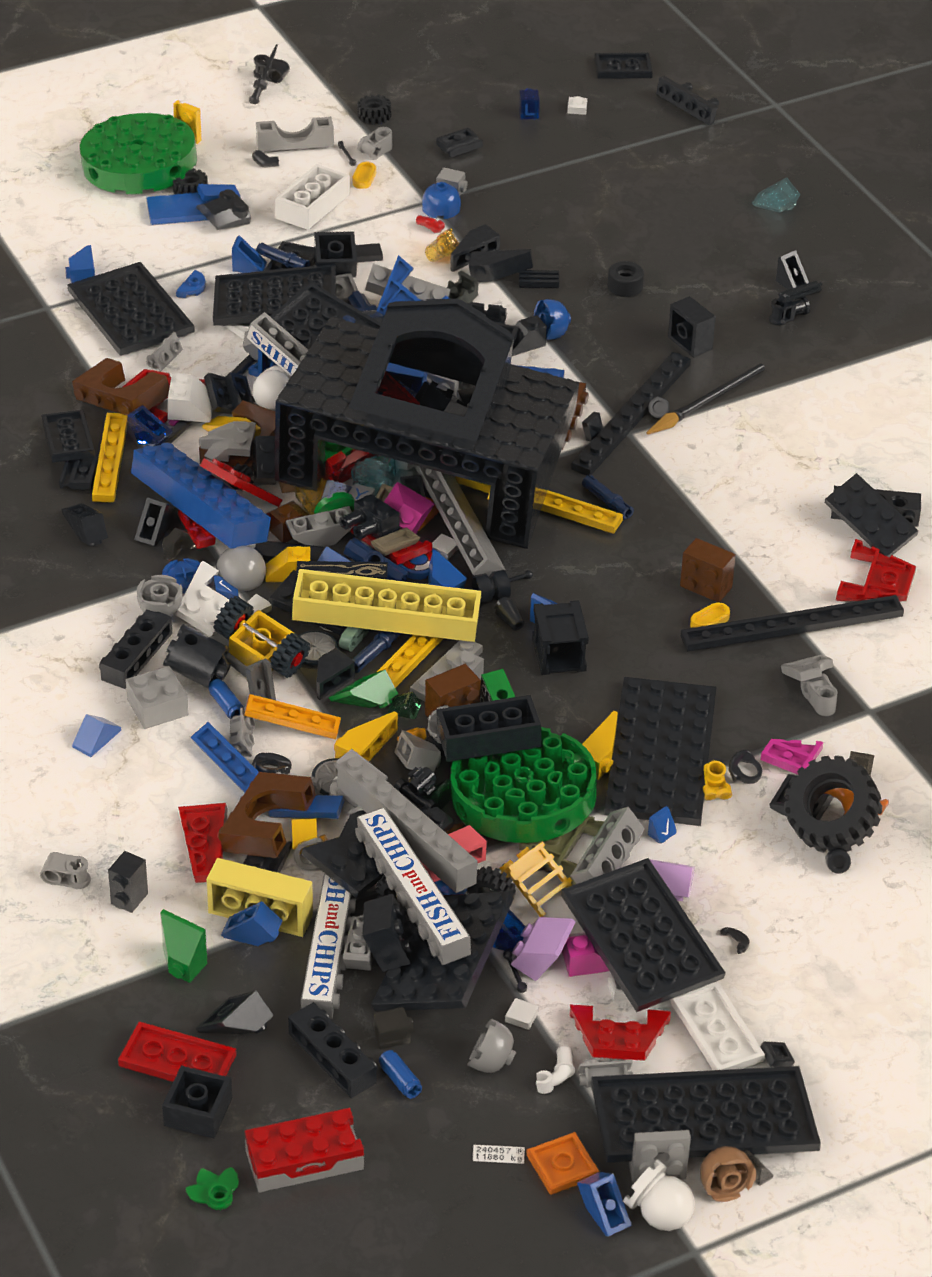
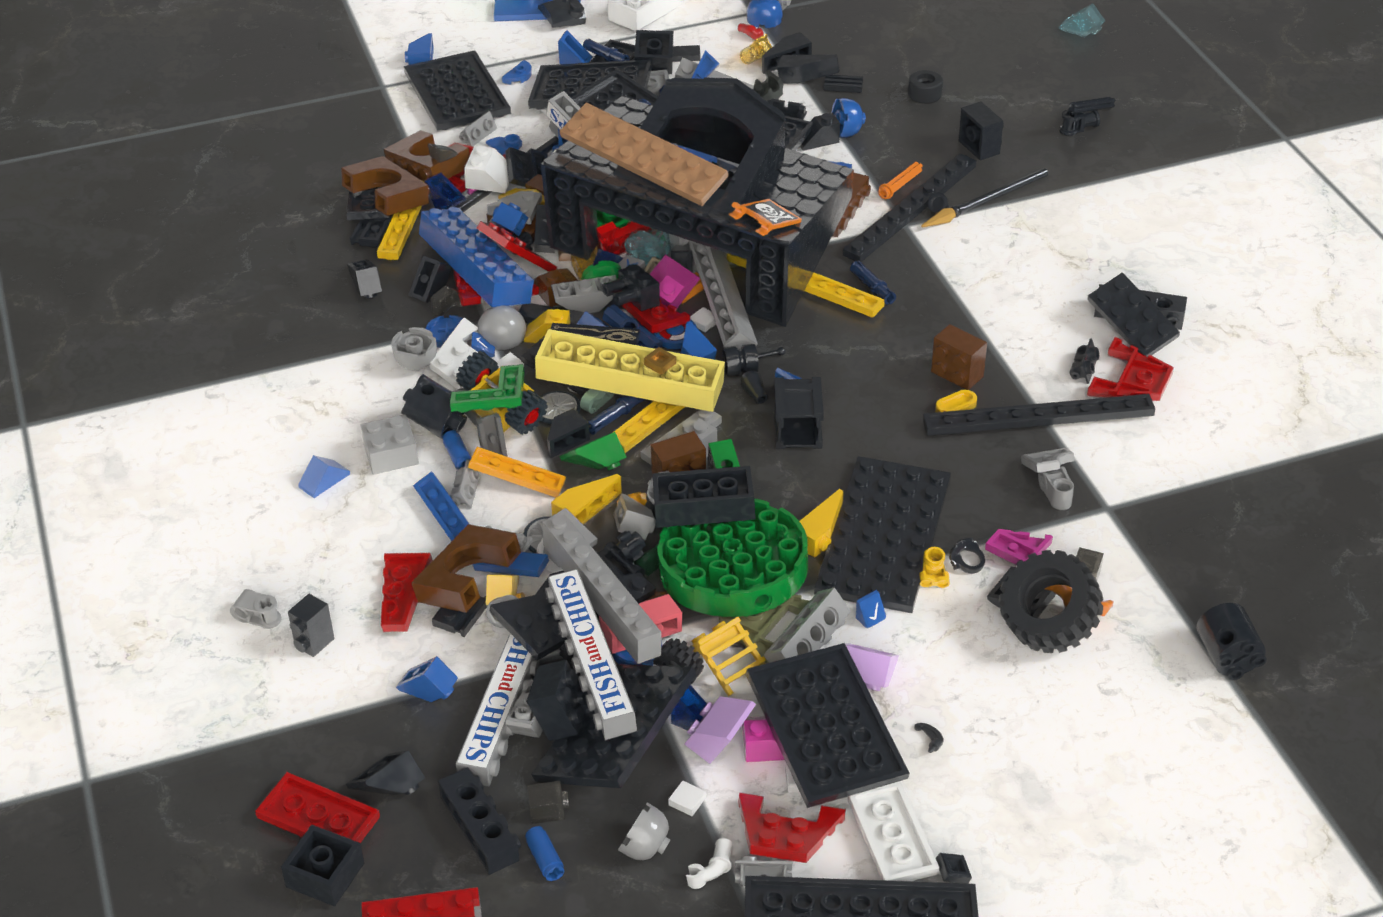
camera: 10 degrees right, 0 degrees up
(108, 426) = (399, 188): none -> reddish brown arch
(136, 648) = (380, 395): black brick -> none
(140, 383) = (440, 152): none -> clear smoke slope
(183, 946) = (350, 697): green slope -> none
(197, 367) = (501, 144): none -> blue plate
(230, 452) = (510, 218): none -> blue brick
(240, 886) = (417, 639): light yellow brick -> none
(273, 639) = (506, 395): none -> green plate
(283, 764) = (485, 512): black piece -> none
(377, 384) = (644, 154): none -> medium nougat plate
(395, 541) = (653, 310): dark tan tile -> none
(406, 705) = (634, 469): clear green slope -> none
(419, 594) = (660, 360): none -> pearl gold plate
(511, 438) = (767, 213): none -> flag
(521, 986) = (693, 768): black hinge -> none
(592, 425) = (869, 215): black tile -> none
(605, 396) = (888, 189): none -> orange axle
(790, 271) = (1085, 85): black slope -> none
(829, 566) = (1085, 362): none -> black hinge
(838, 860) = (1050, 661): black tile -> none

